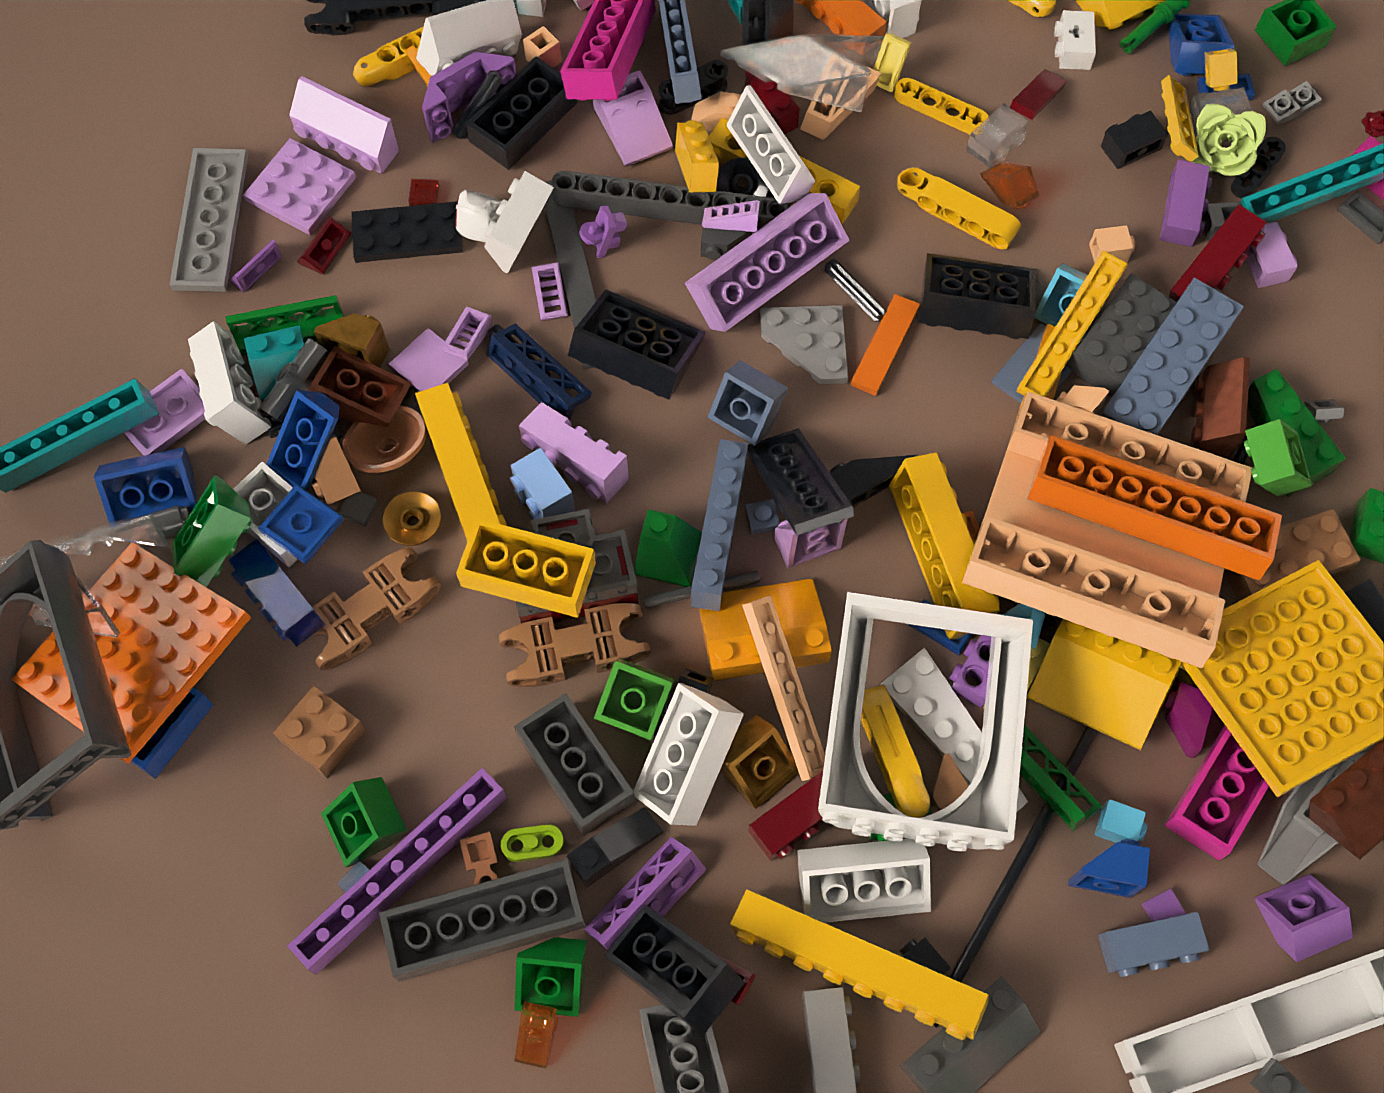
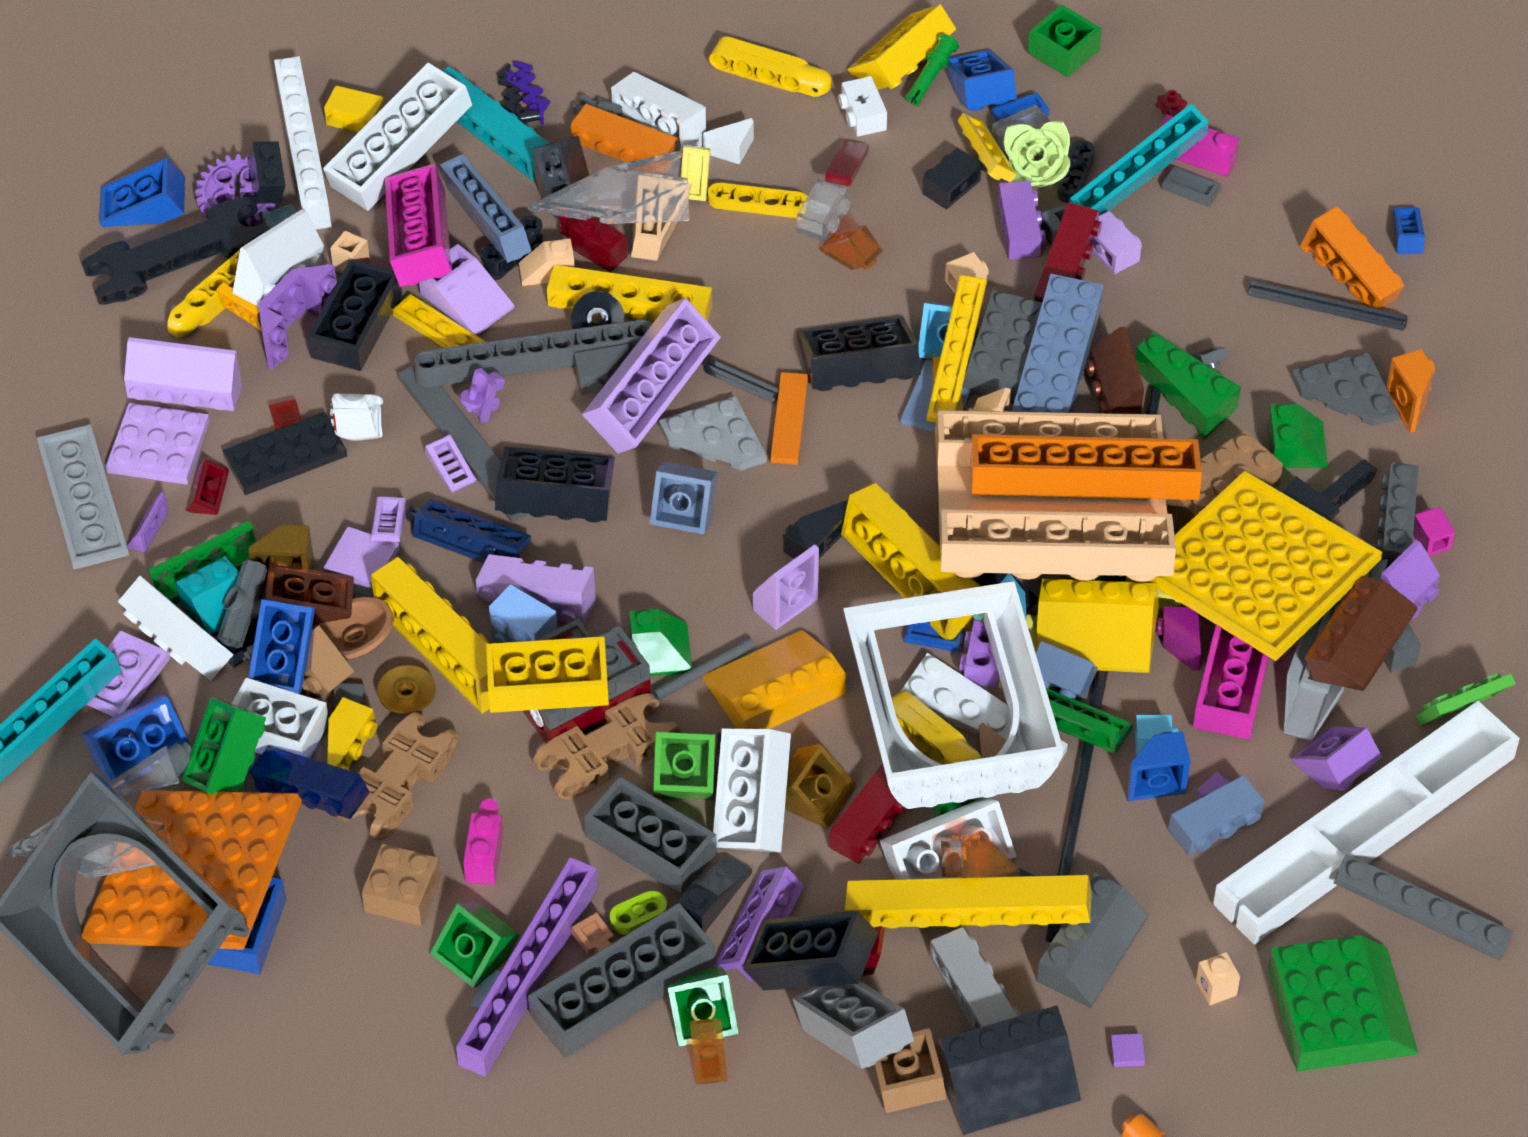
camera: 20 degrees left, 15 degrees down
(301, 524) = (310, 715): blue tile -> none
(334, 556) = (348, 731): none -> yellow slope
(415, 713) = (483, 844): none -> dark pink brick
(481, 97) = (311, 314): black axle -> none
(516, 219) = (398, 406): white slope -> none
(595, 144) = (433, 323): none -> yellow tile
(696, 157) = (545, 304): yellow brick -> none
(719, 525) = (700, 606): sand blue brick -> none
(734, 216) = (606, 344): lavender slope -> none
(762, 516) = (734, 593): sand blue plate -> none
(769, 149) = (616, 274): white slope -> none
(785, 687) = (816, 710): light nougat plate -> none
(799, 482) = (760, 541): black plate -> none
(879, 920) = (974, 858): none -> clear orange slope
(937, 39) = (730, 141): none -> white slope
(959, 207) = (811, 282): yellow piece -> none
(1052, 719) = (1065, 671): none -> sand blue brick
(1221, 69) = (1009, 93): yellow brick -> none
(1277, 458) = (1179, 400): bright green brick -> none
(1292, 104) = (1087, 108): light grey slope -> none

